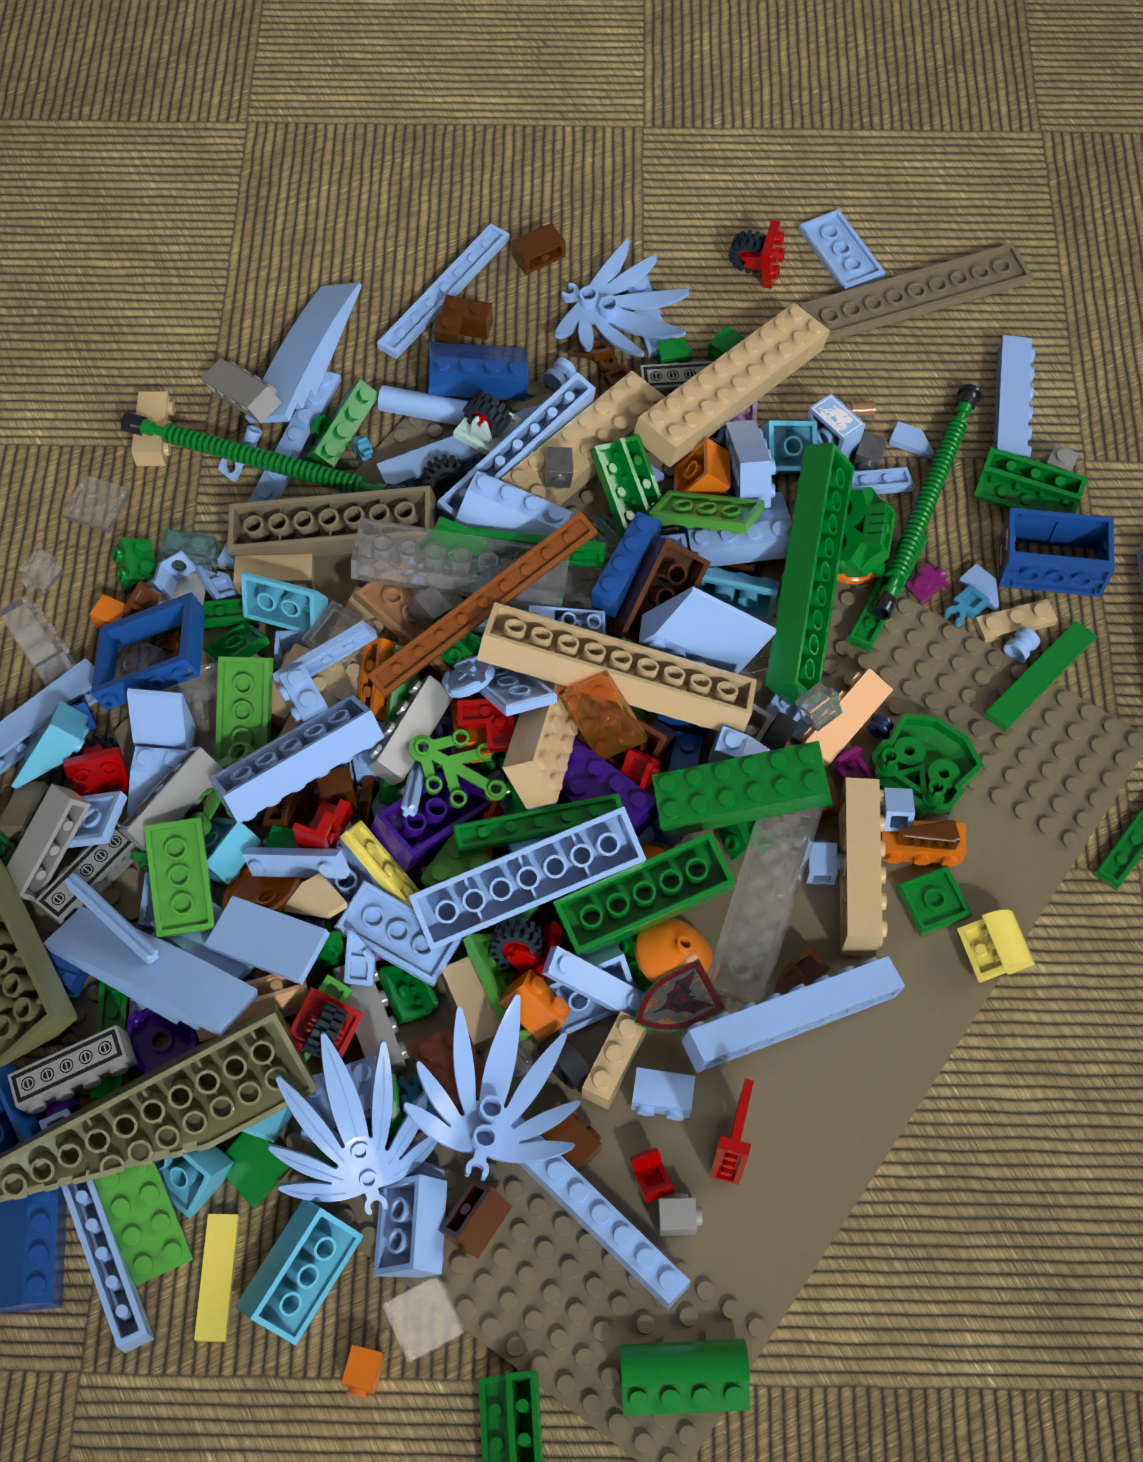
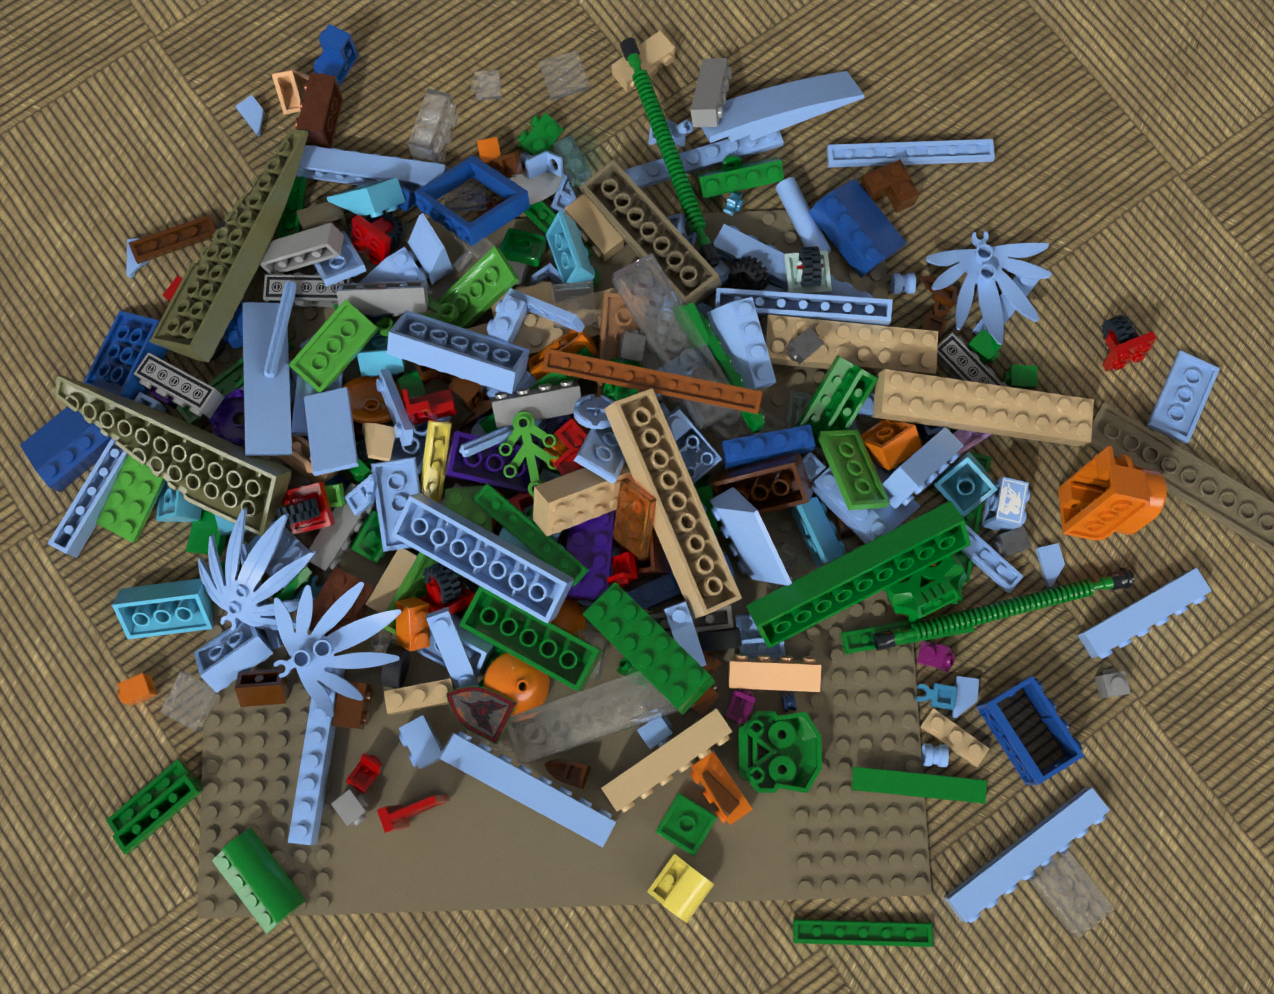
camera: 55 degrees right, 15 degrees up
(217, 1278) = (133, 564): light yellow tile -> none
(538, 248) = (999, 187): reddish brown brick -> none
(819, 706) = (761, 652): clear brick -> none
(862, 409) = (1046, 508): medium nougat pin -> none
(892, 346) = (1110, 497): none -> orange brick
(898, 808) = (724, 757): light blue brick -> none
(1028, 484) = (1073, 676): green brick -> none

